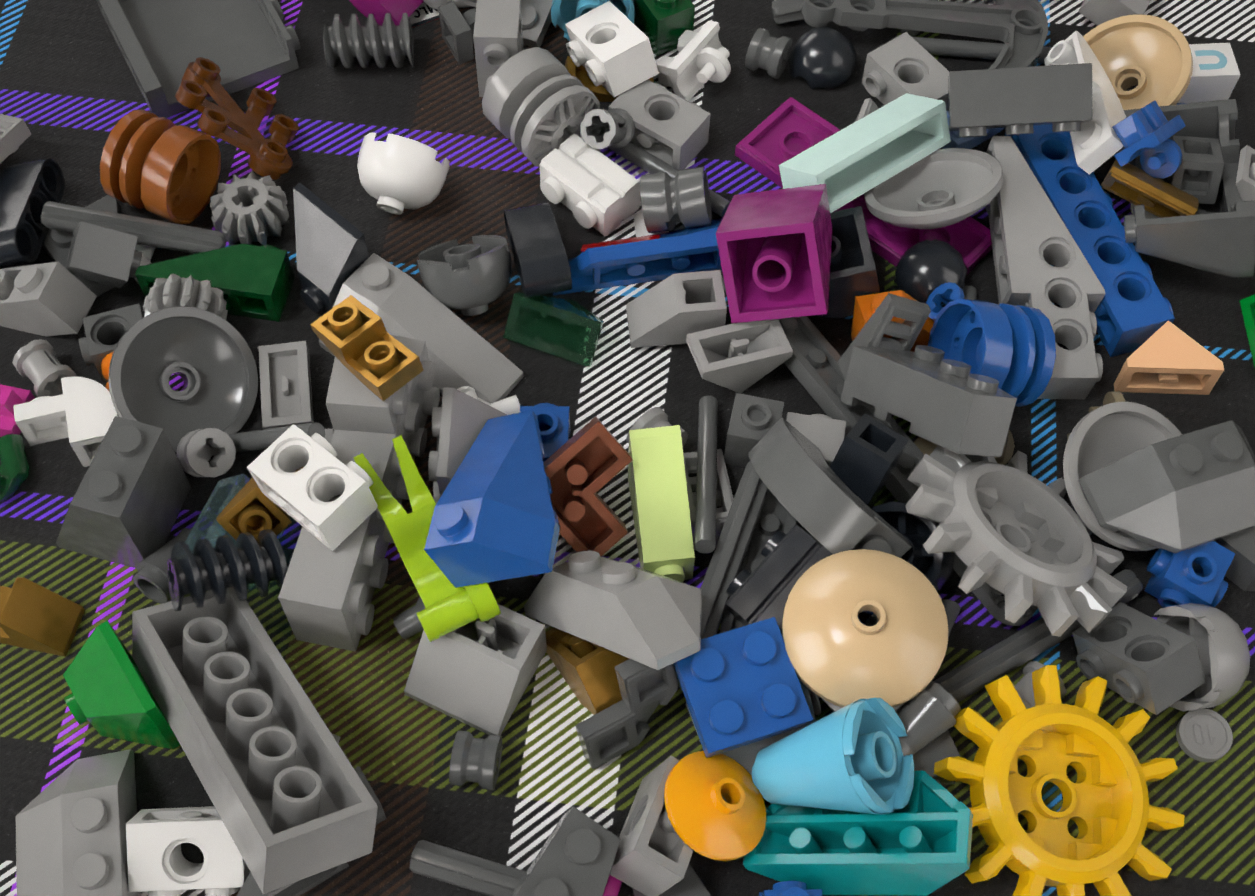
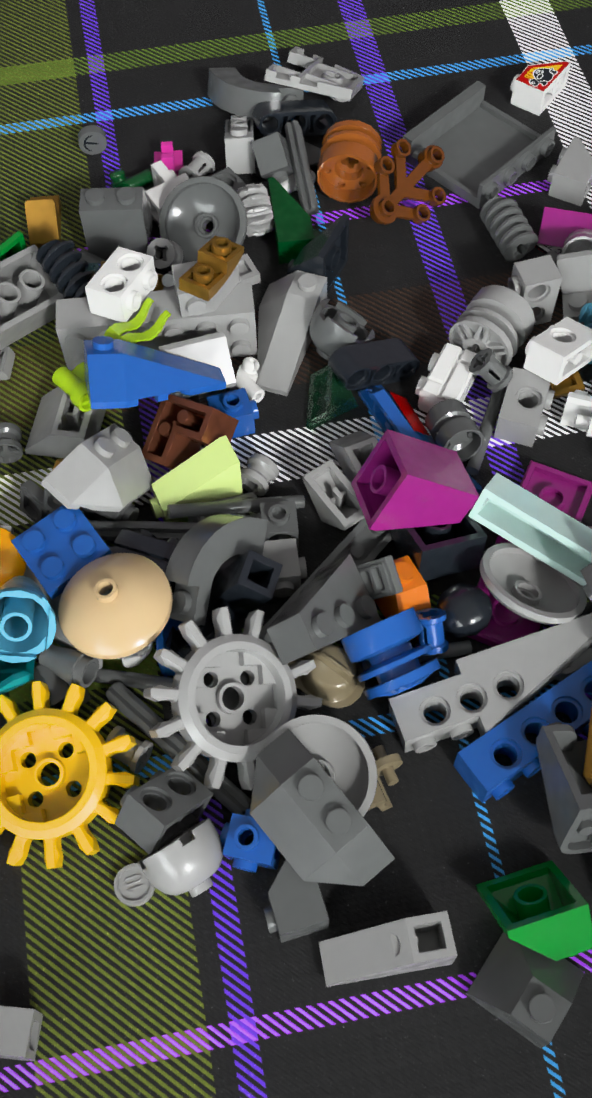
camera: 75 degrees right, 0 degrees up
(249, 209) = (354, 207): light grey gear -> none
(400, 172) = (404, 276): white cylinder -> none
(1170, 365) = (451, 799): light nougat slope -> none

